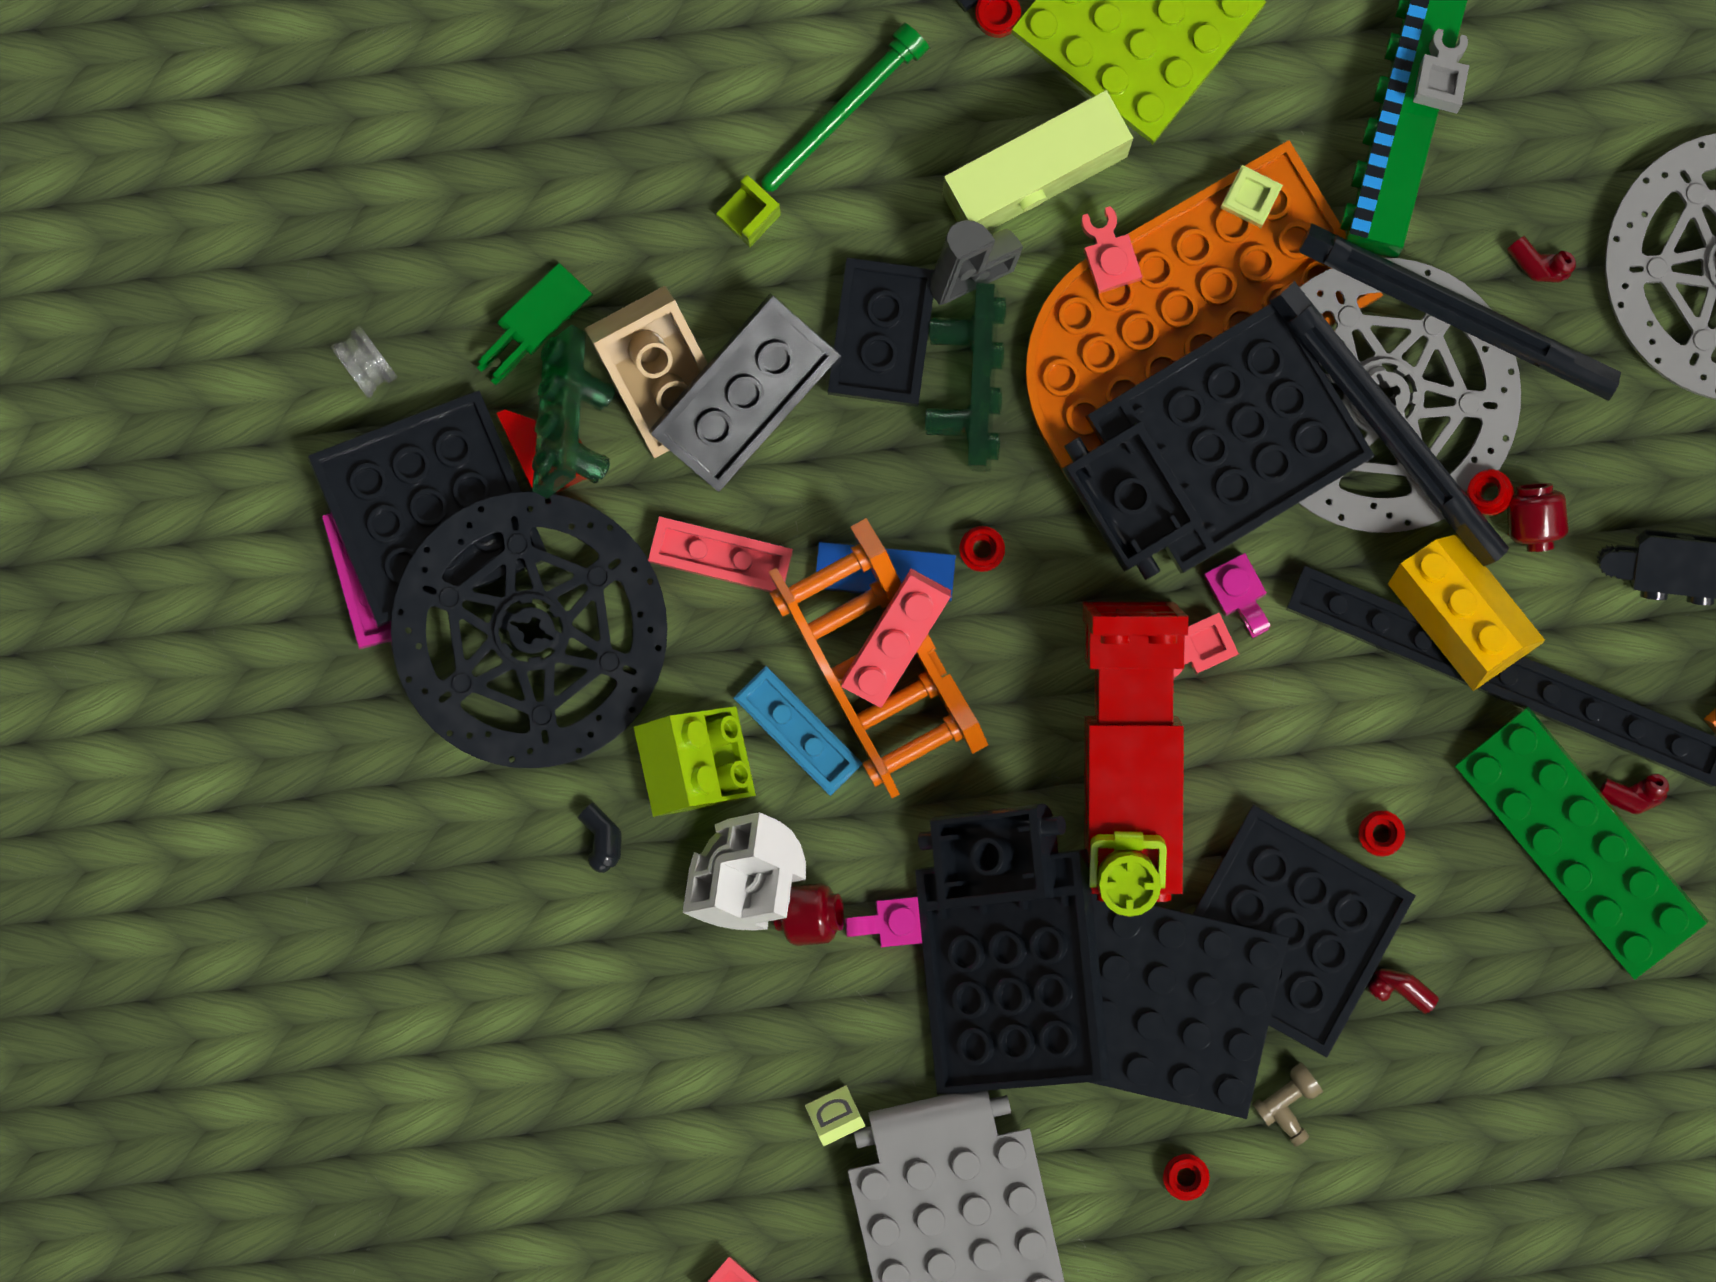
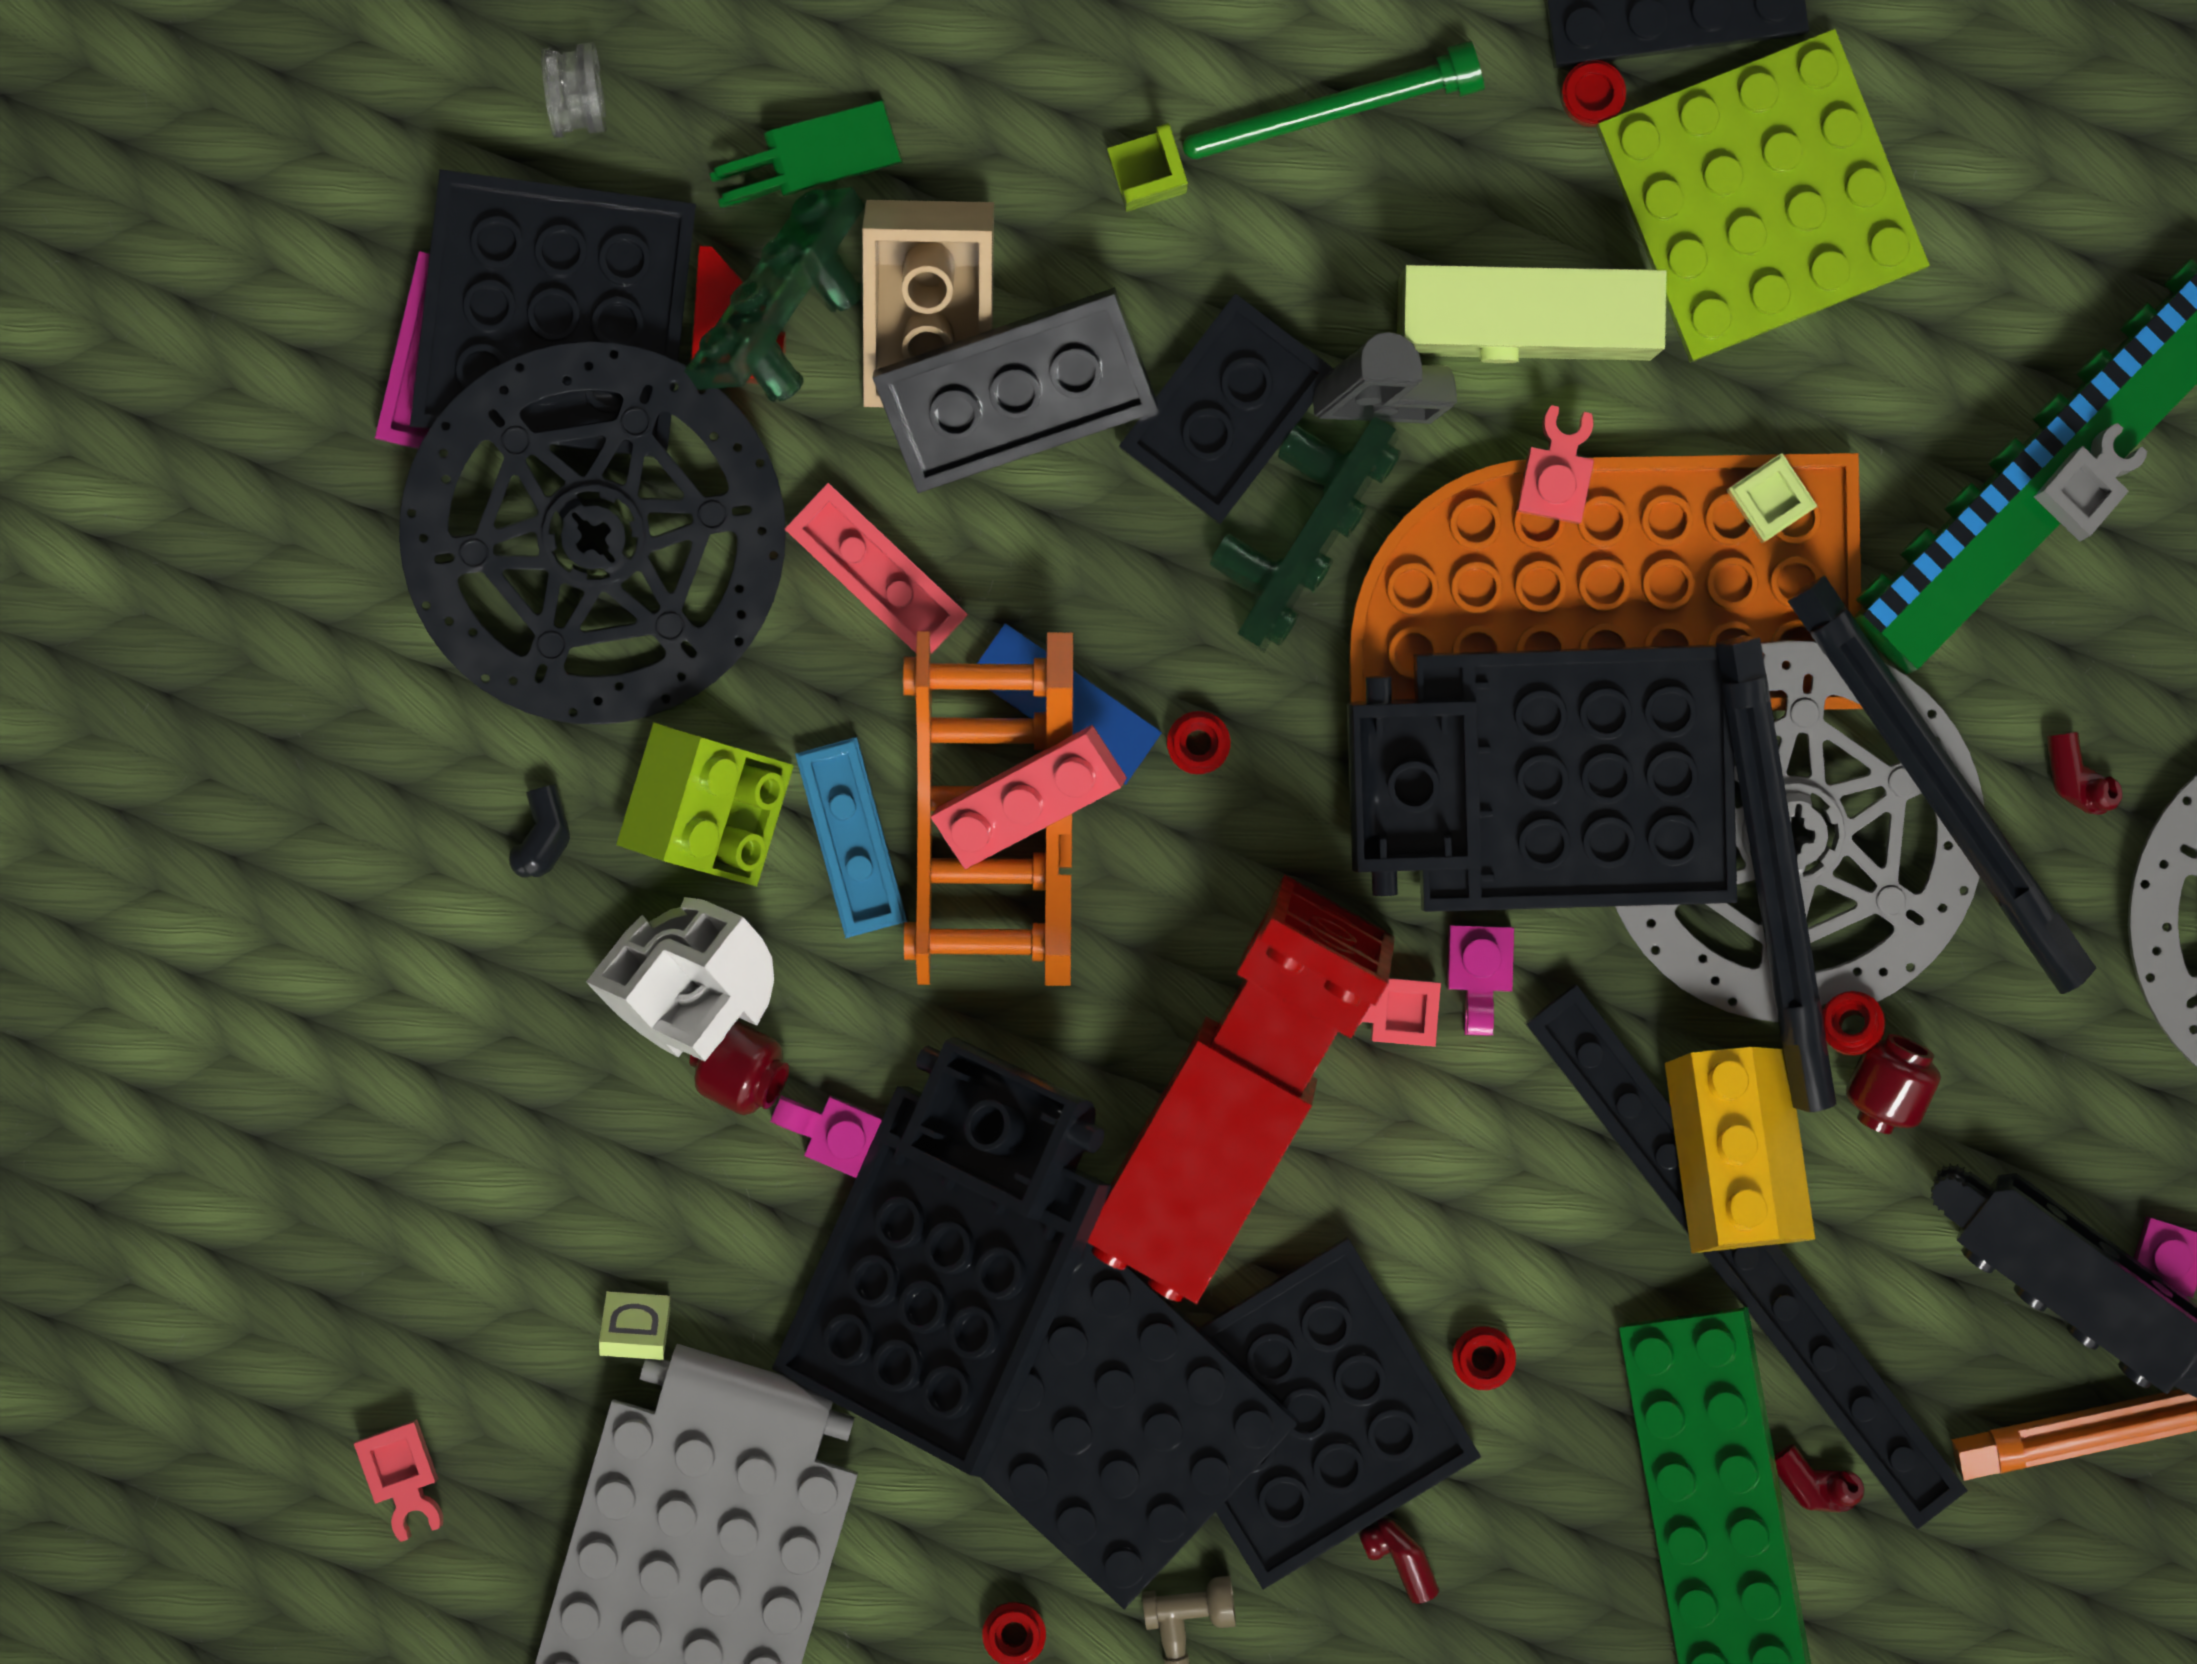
camera: 30 degrees right, 5 degrees up
(1127, 876) = (1140, 1245): lime piece -> none

